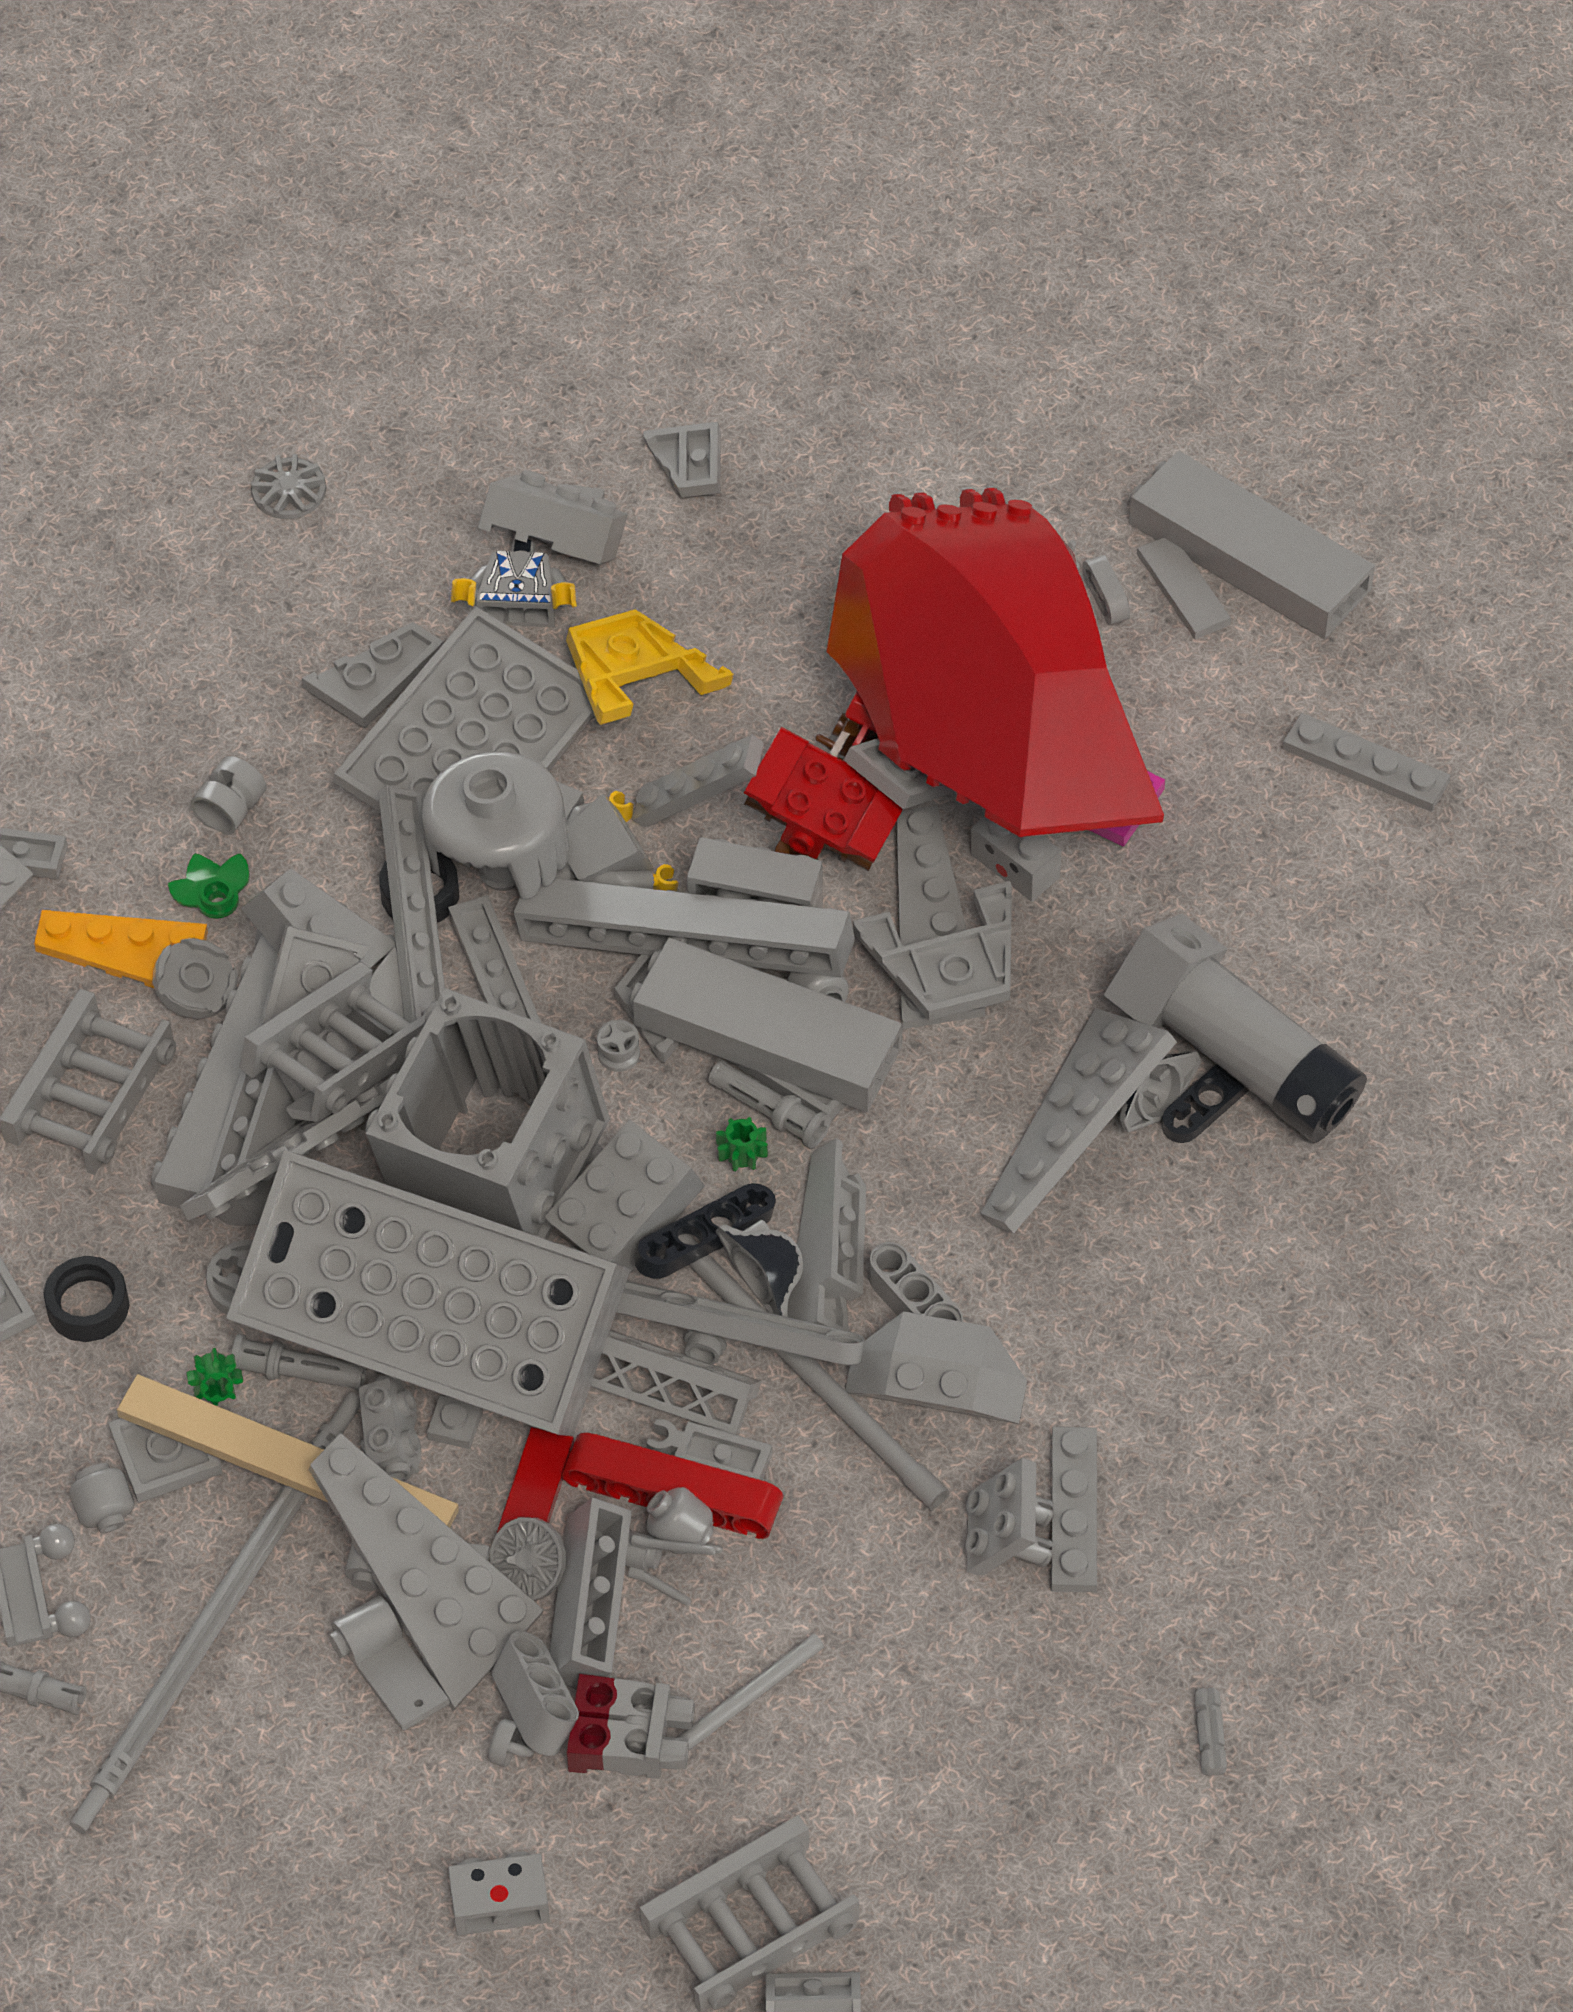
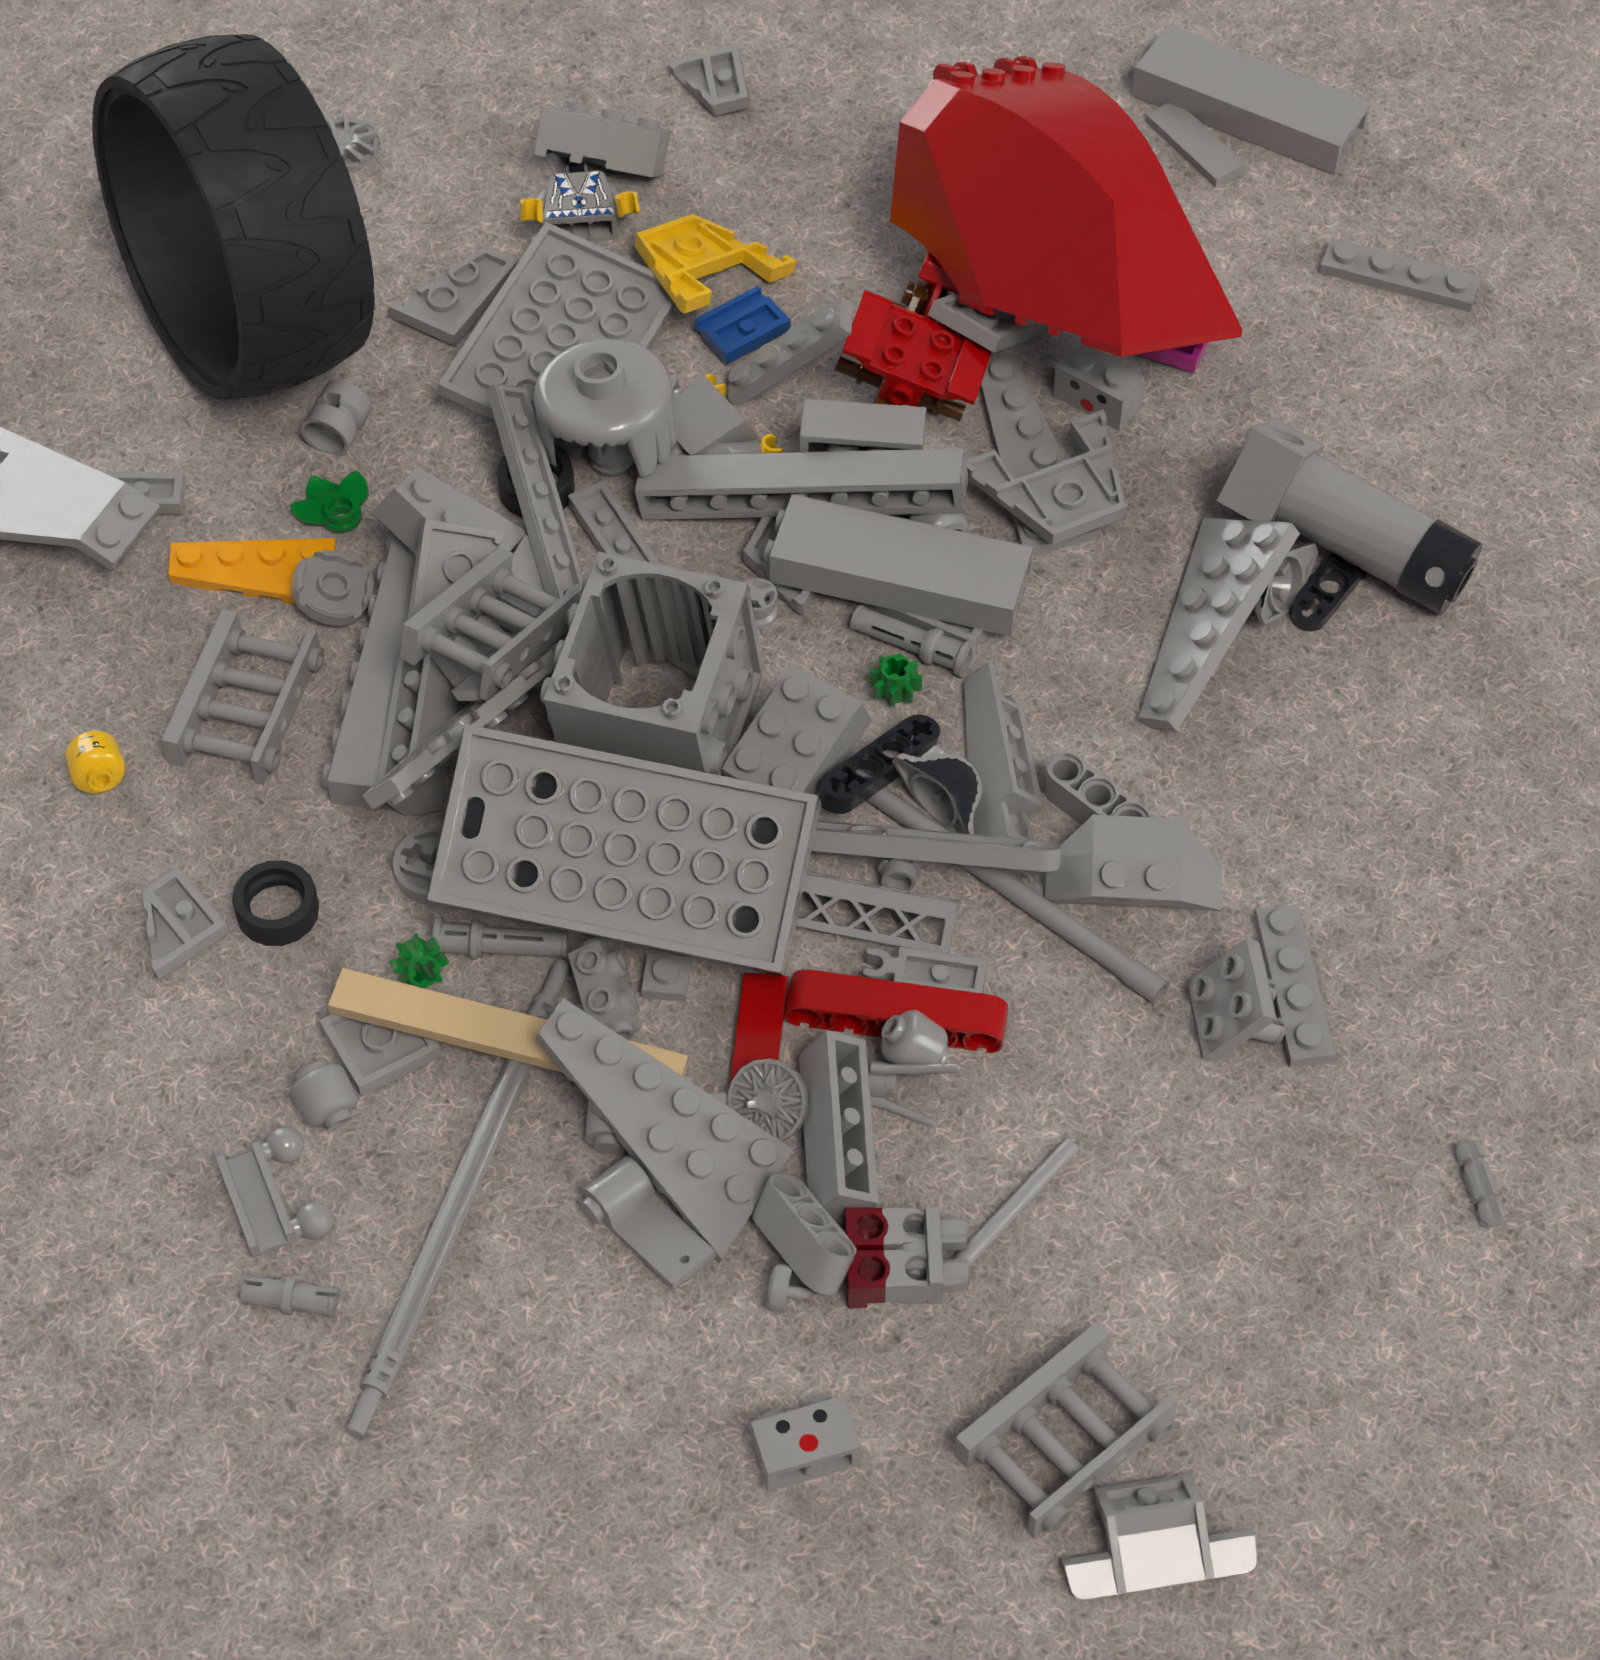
camera: 10 degrees left, 0 degrees up
(145, 582) = (234, 214): none -> black tyre
(663, 739) = (742, 325): none -> blue plate

